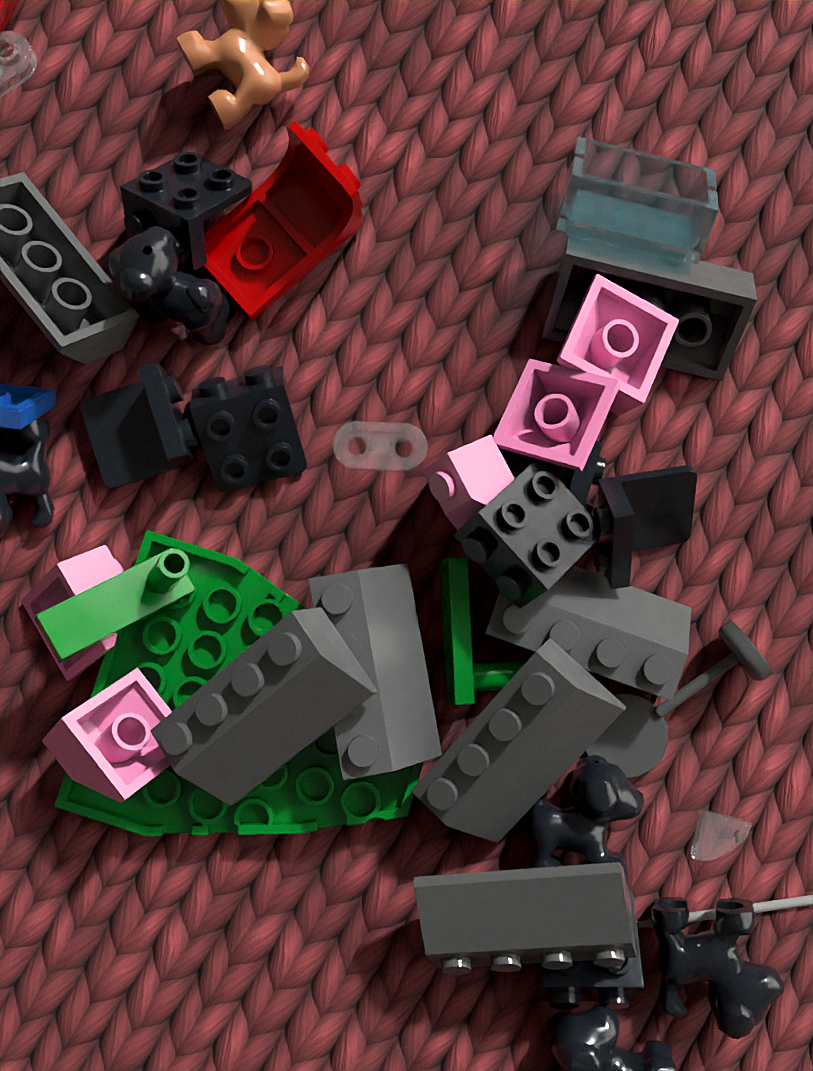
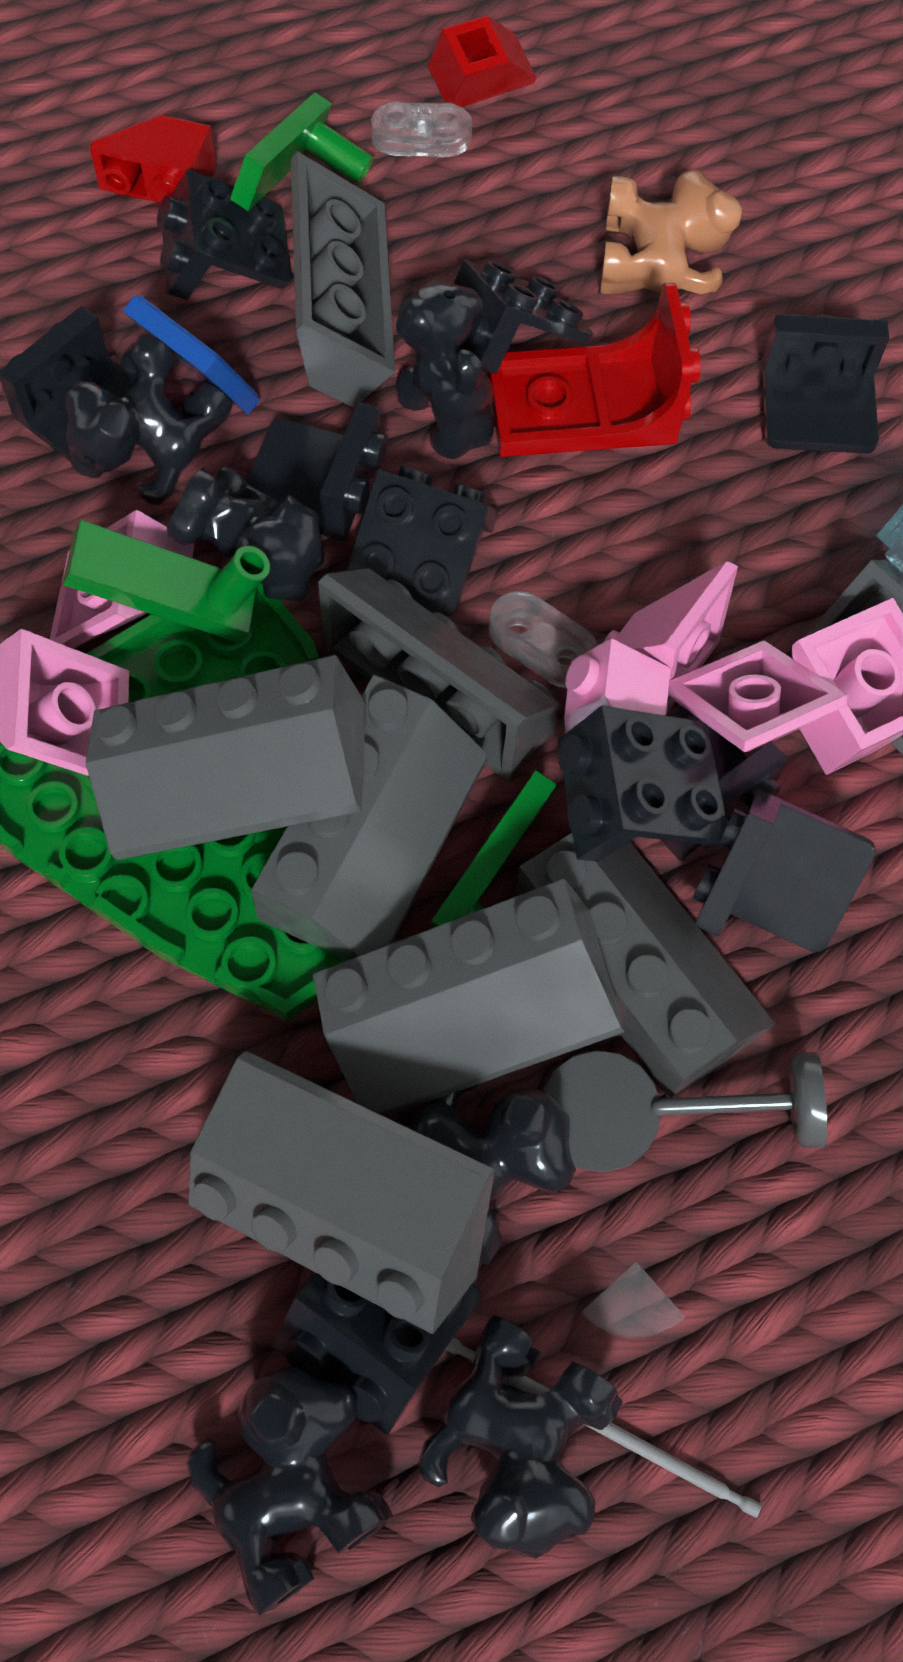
camera: 30 degrees right, 20 degrees down
(138, 510) = (238, 515): none -> black animal
(330, 520) = (391, 636): none -> dark grey slope
(434, 110) = (822, 383): none -> black bracket
(463, 400) = (682, 625): none -> bright pink slope

